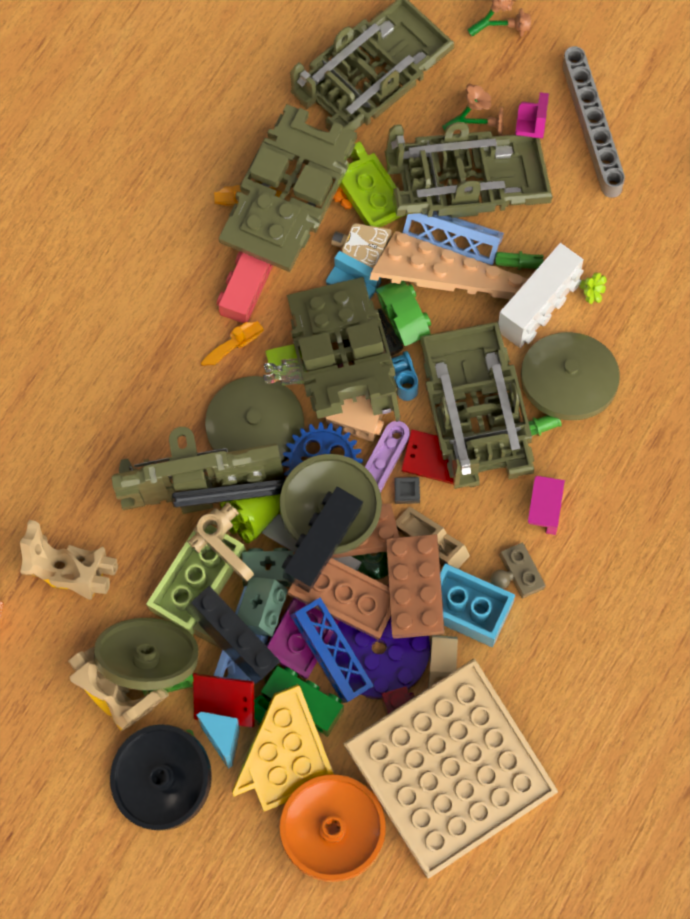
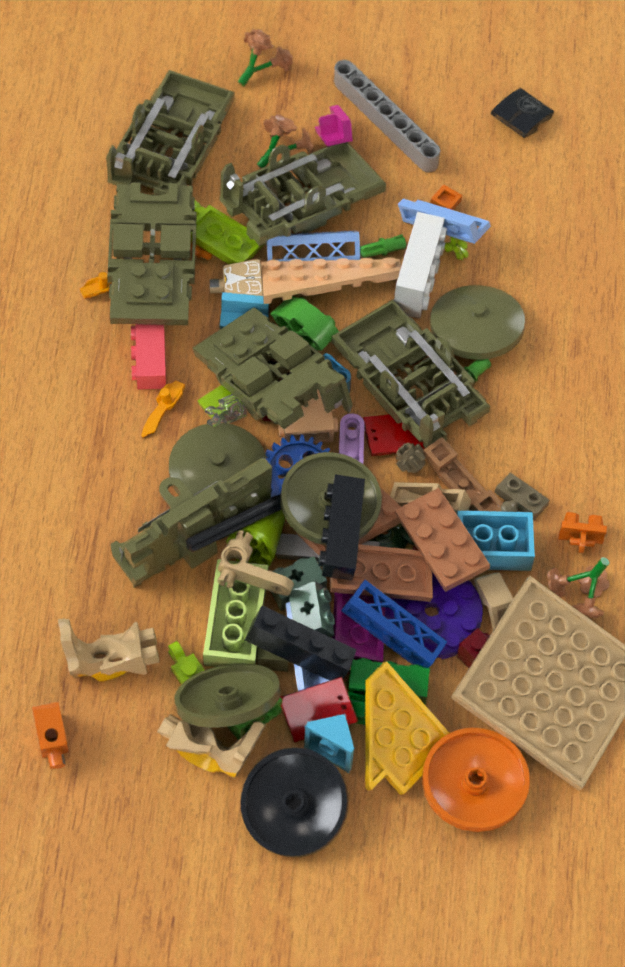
camera: 30 degrees left, 10 degrees down
(131, 606) = (184, 666): none -> lime plate
(407, 490) = (385, 470): dark grey tile -> none
(434, 489) = (410, 458): none -> dark tan gear
(471, 530) = (455, 476): none -> medium nougat slope
(544, 684) = (592, 582): none -> nougat plant
(546, 503) = (515, 431): dark pink panel -> none
(567, 635) = (582, 533): none -> orange hips
(592, 270) = (457, 223): none -> light blue fence
(606, 234) = (446, 198): none -> orange plate

